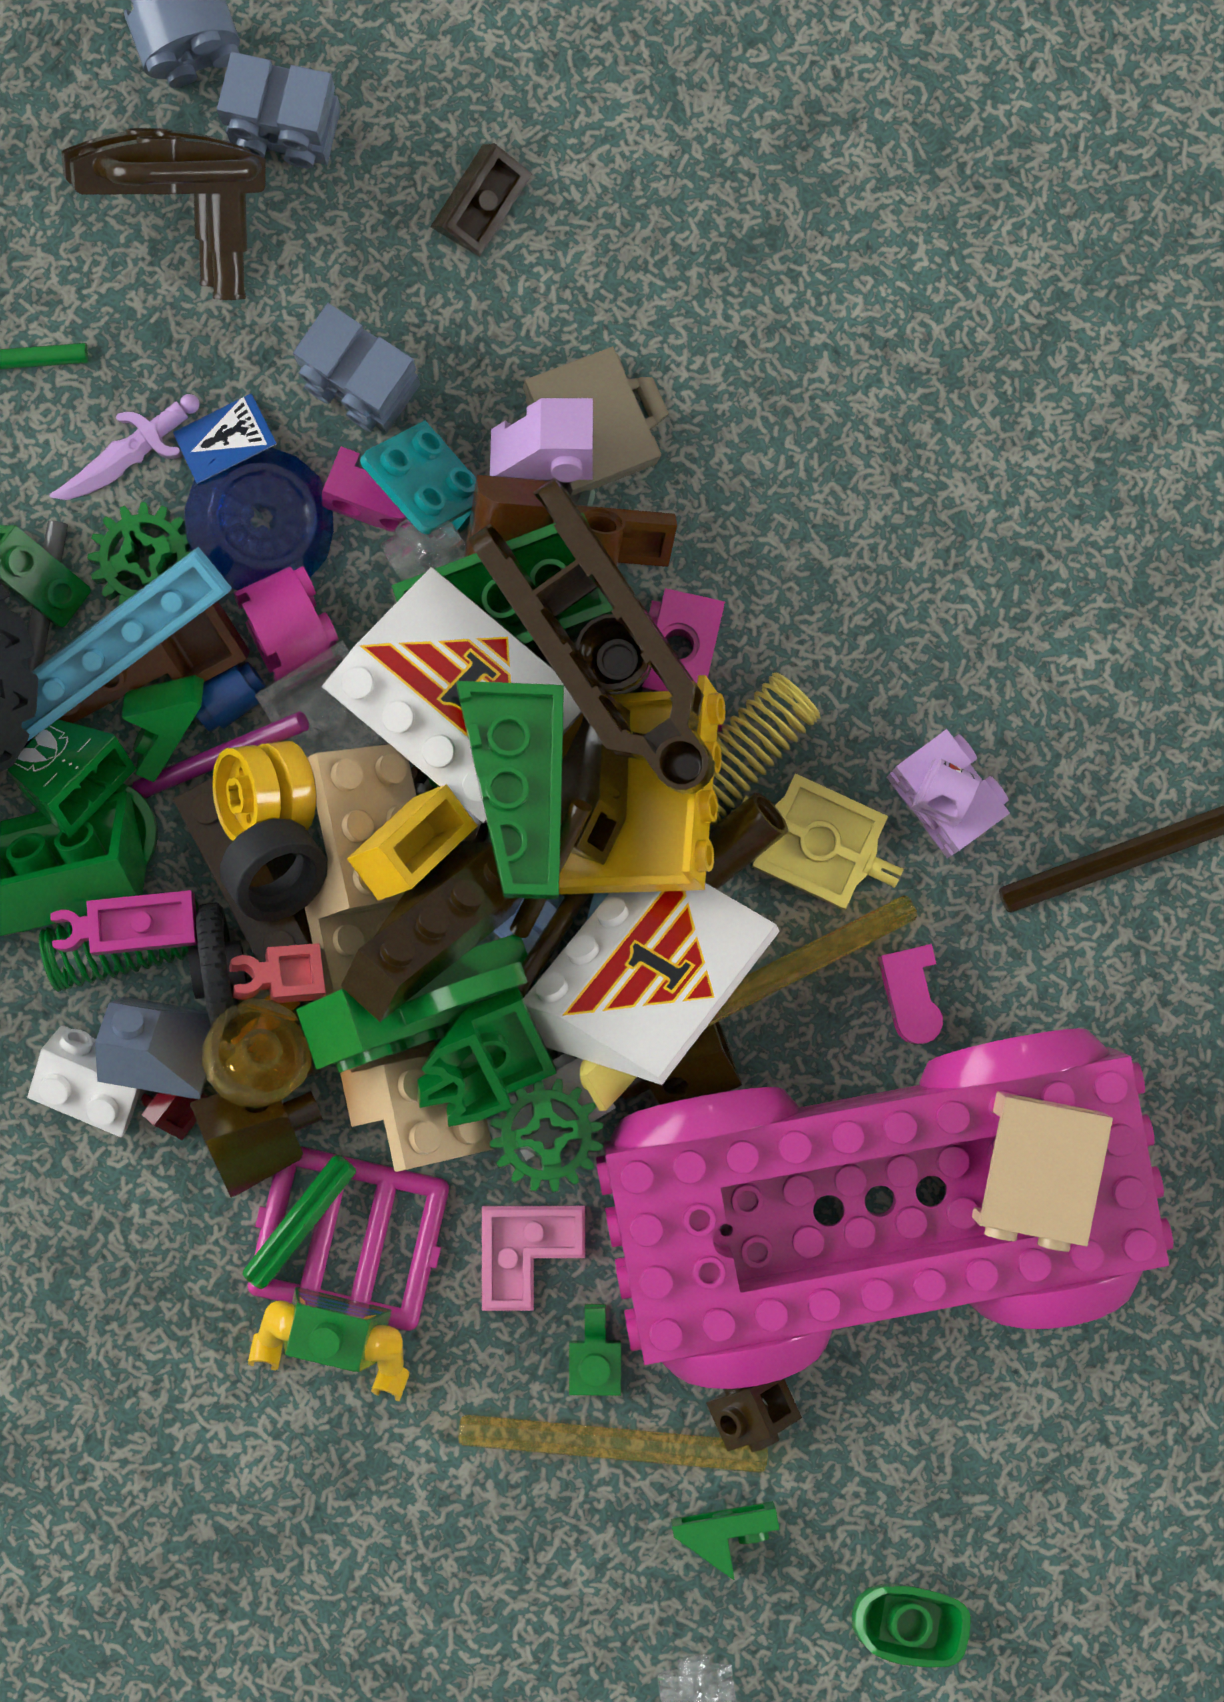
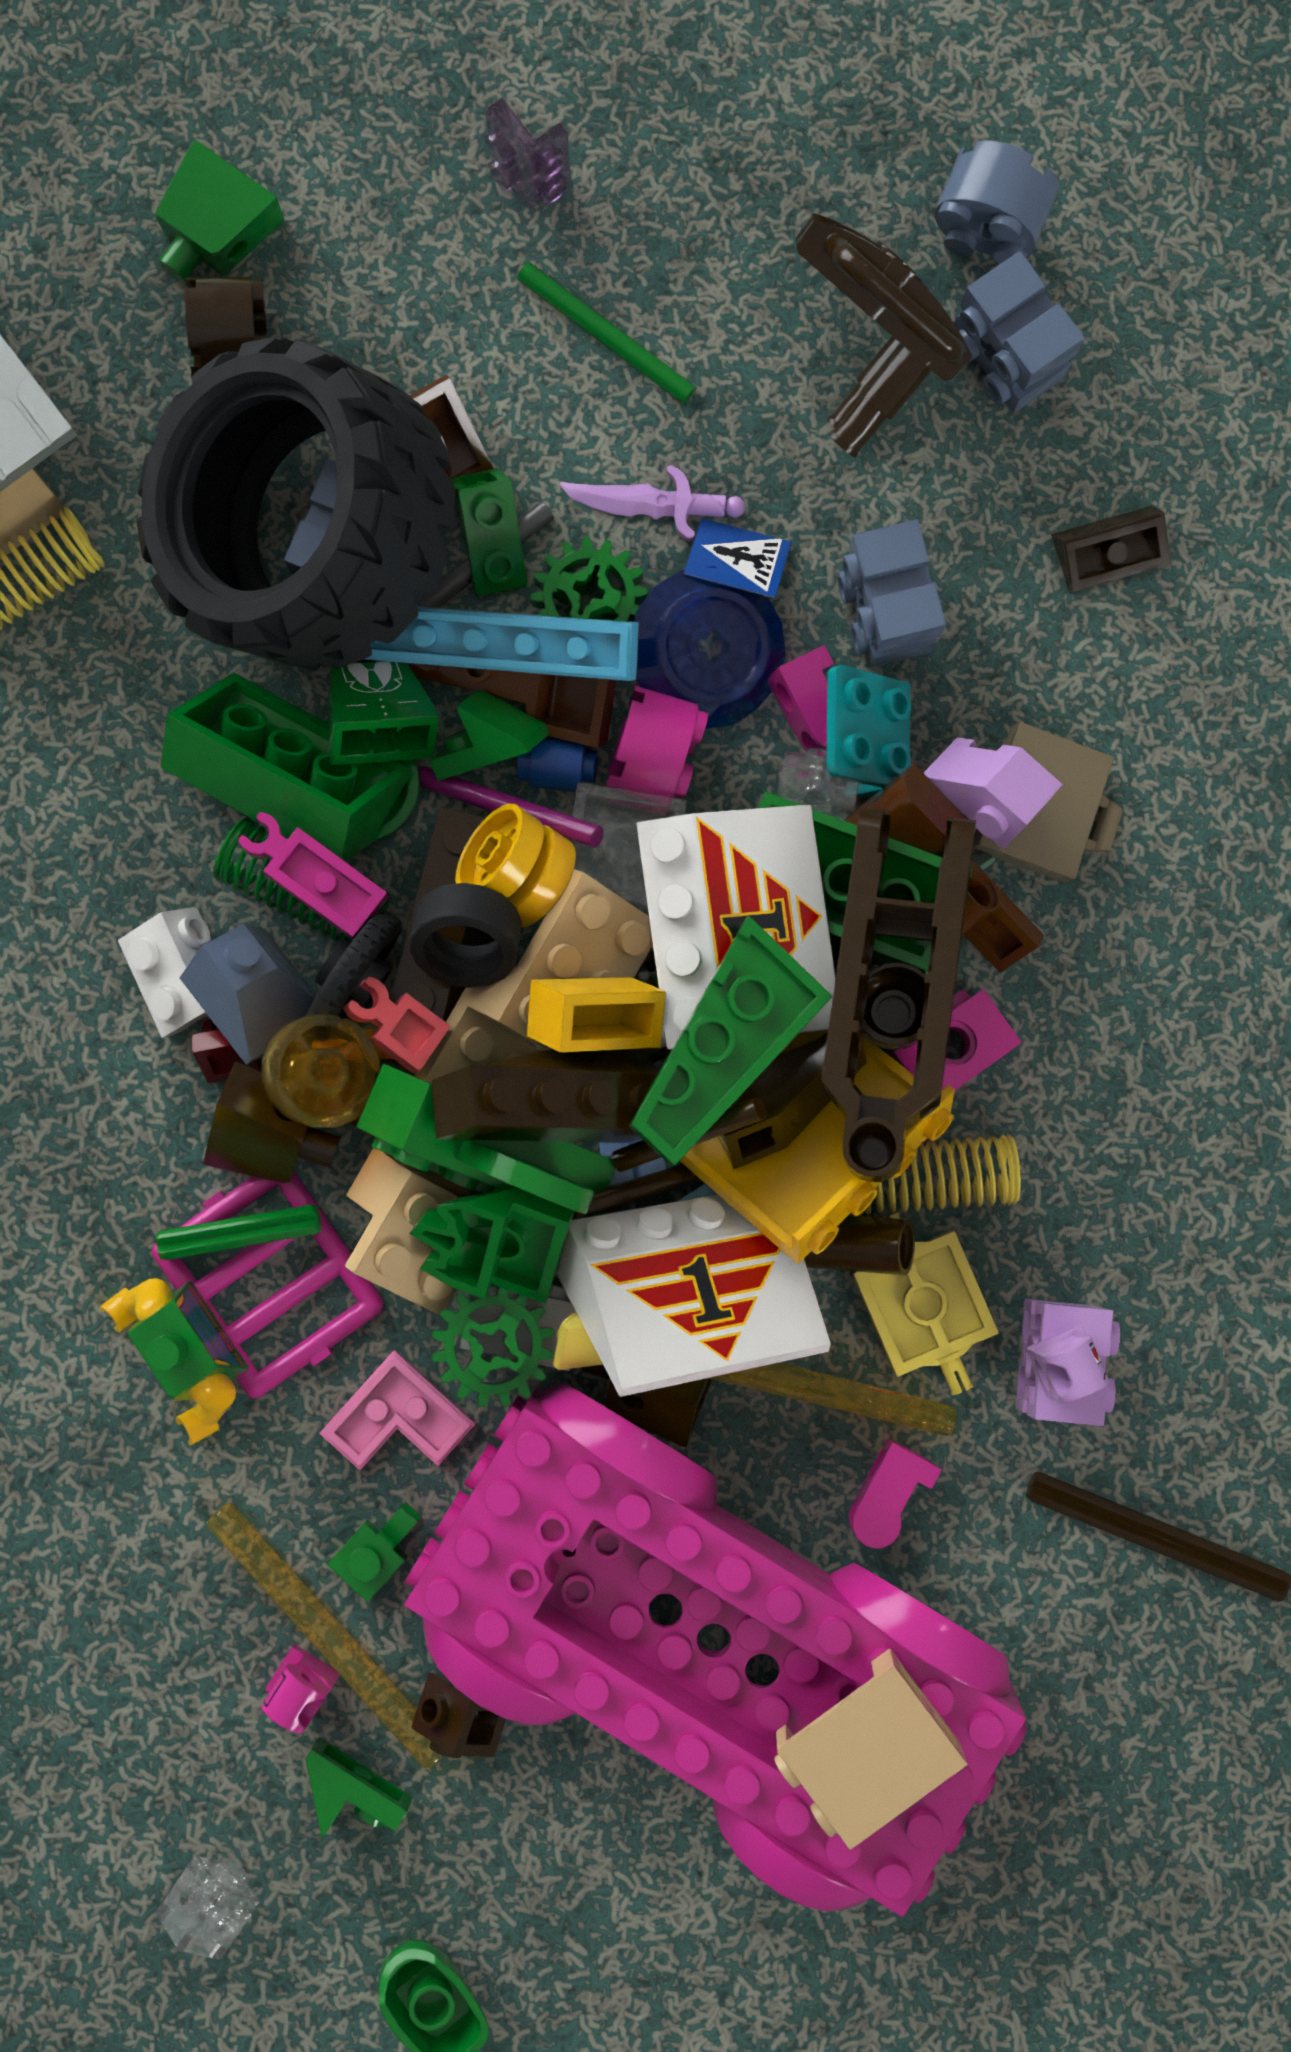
camera: 40 degrees right, 0 degrees up
(626, 1495) = (298, 1689): none -> dark pink leg

